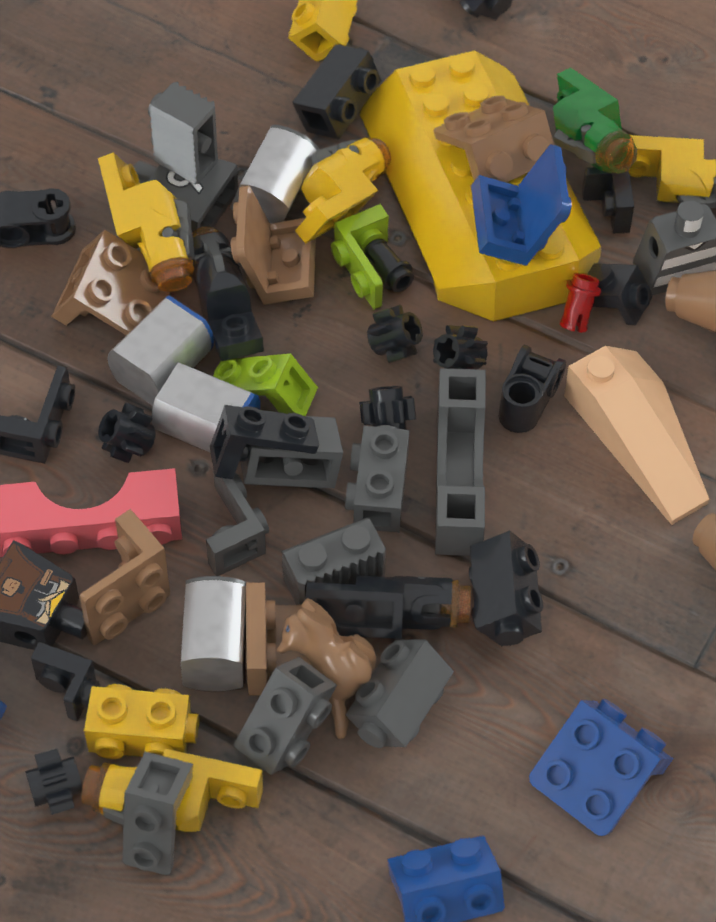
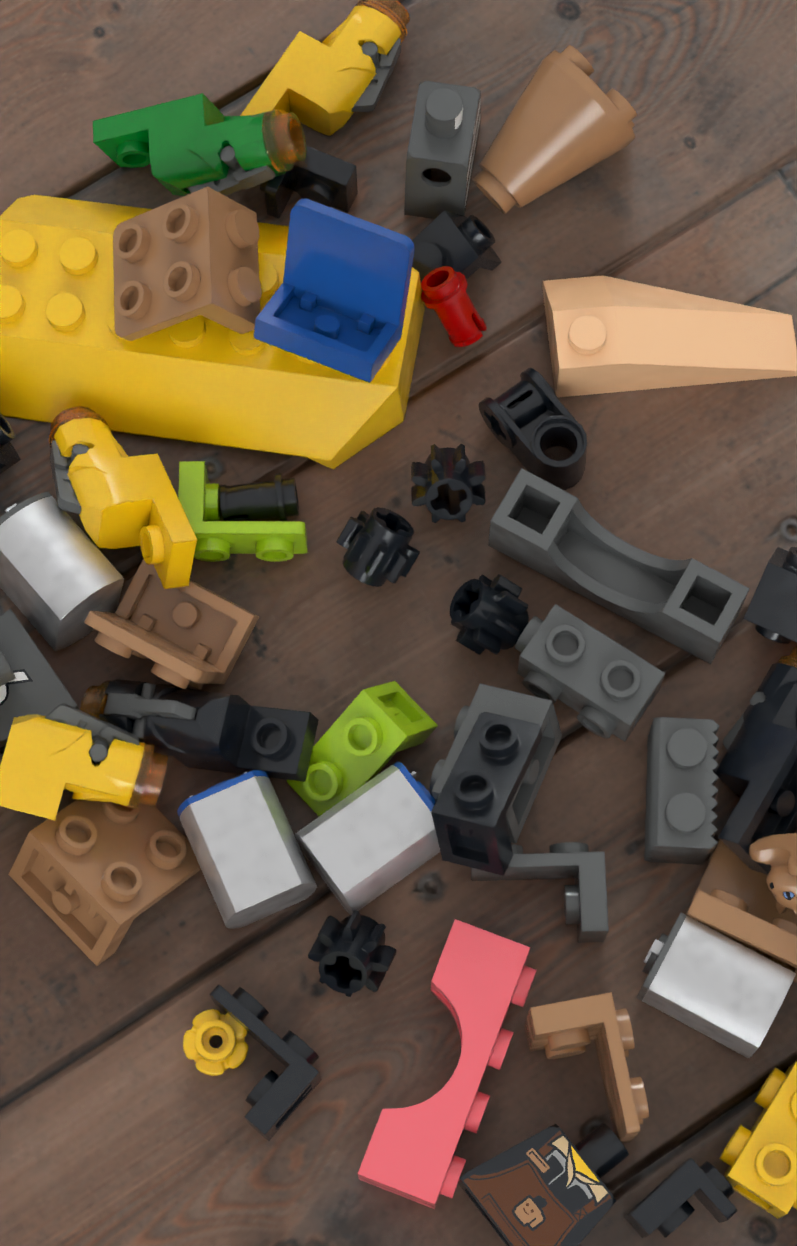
camera: 60 degrees left, 15 degrees up
(32, 403) = (215, 1060): none -> yellow plate

